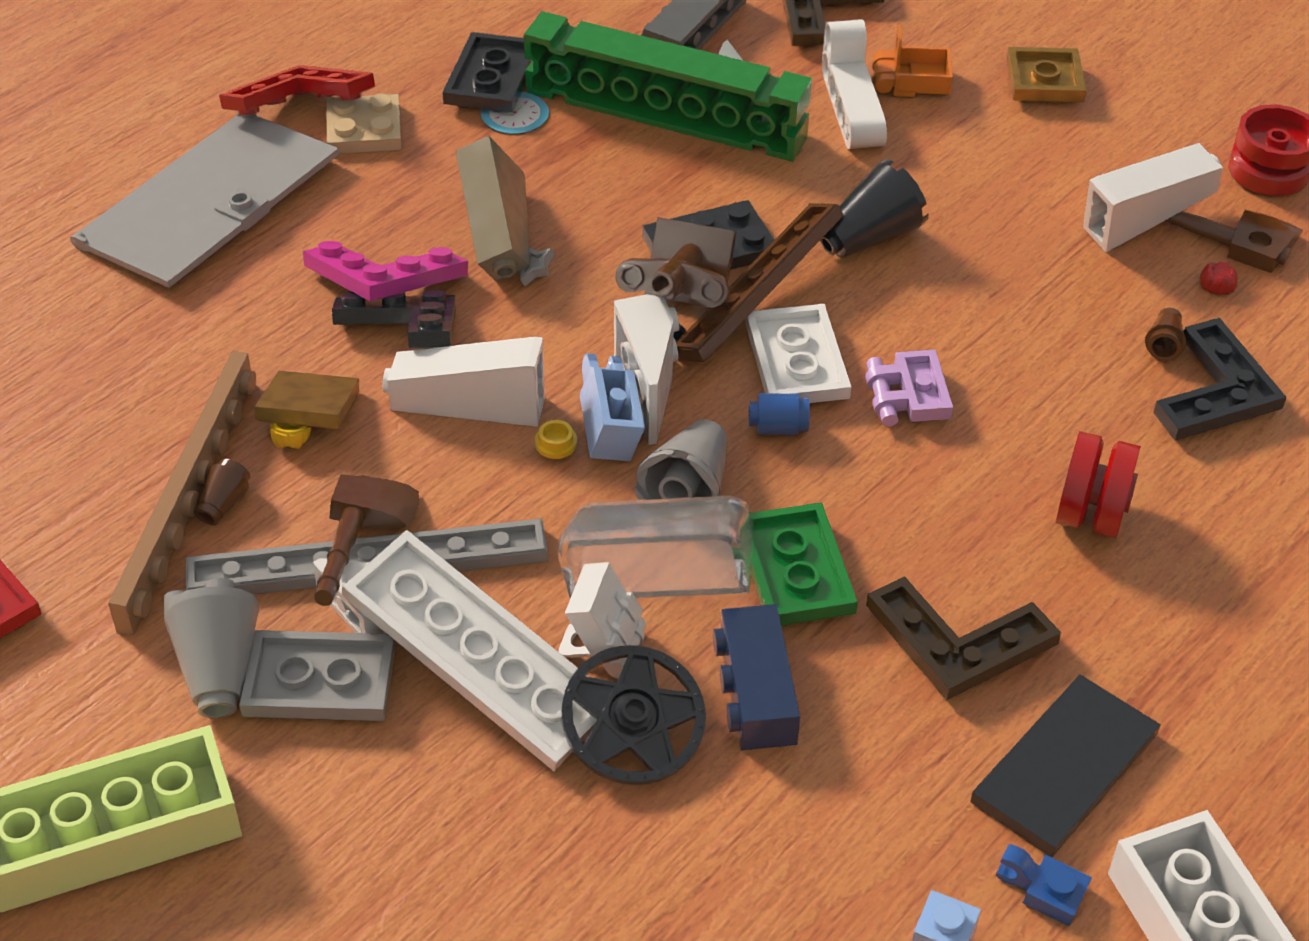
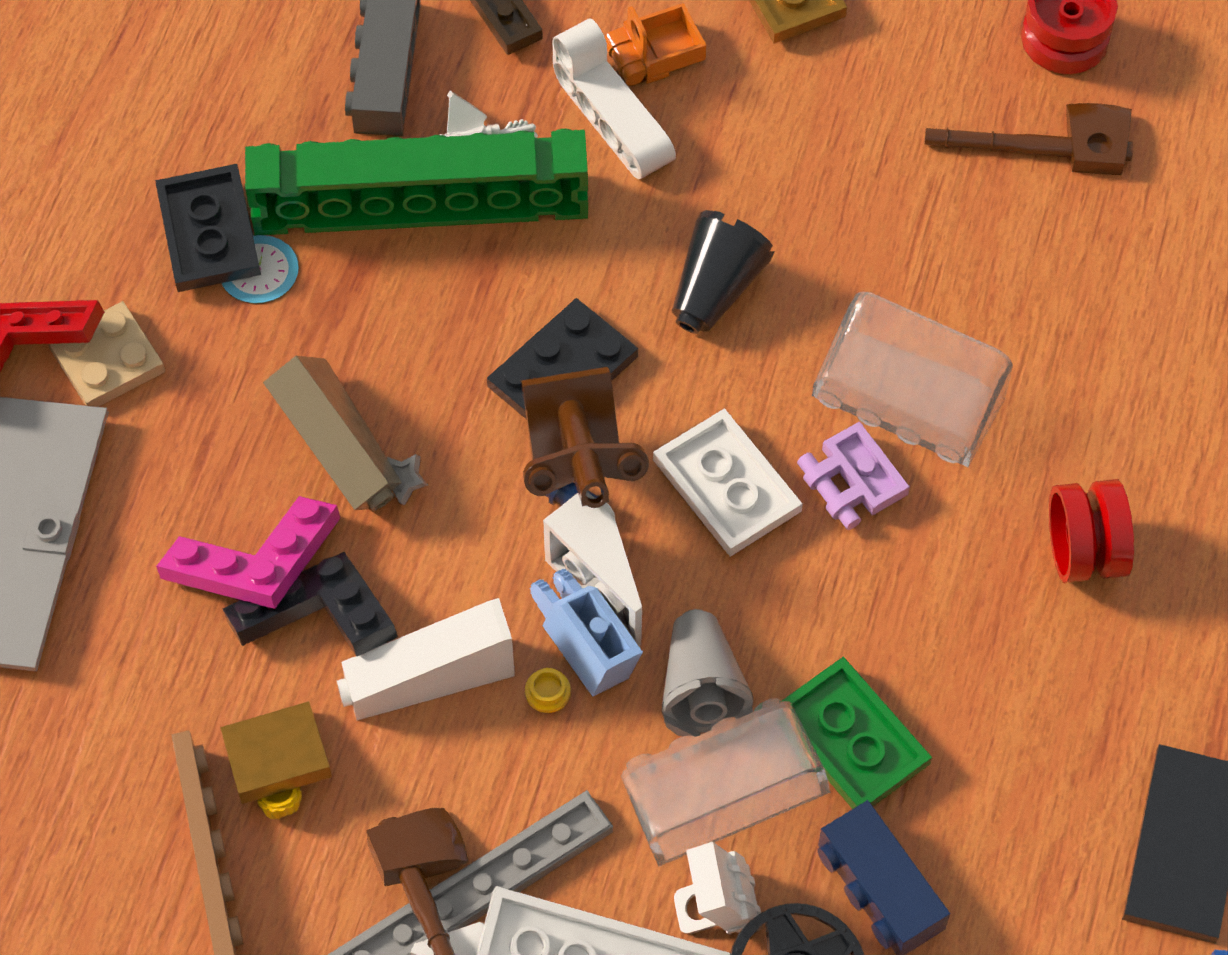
camera: 25 degrees left, 15 degrees up
(222, 489) = (255, 900): reddish brown cone -> none
(758, 281) = (652, 399): reddish brown tile -> none
(779, 414) = (749, 565): blue brick -> none
(966, 661) = (1037, 781): dark brown plate -> none
(1002, 333) = (914, 378): none -> clear windscreen
(1148, 193) = (980, 136): white slope -> none
(1166, 336) = (1064, 307): reddish brown cone -> none
(1218, 278) = (1078, 207): red piece -> none
(1240, 391) = (1163, 341): black plate -> none

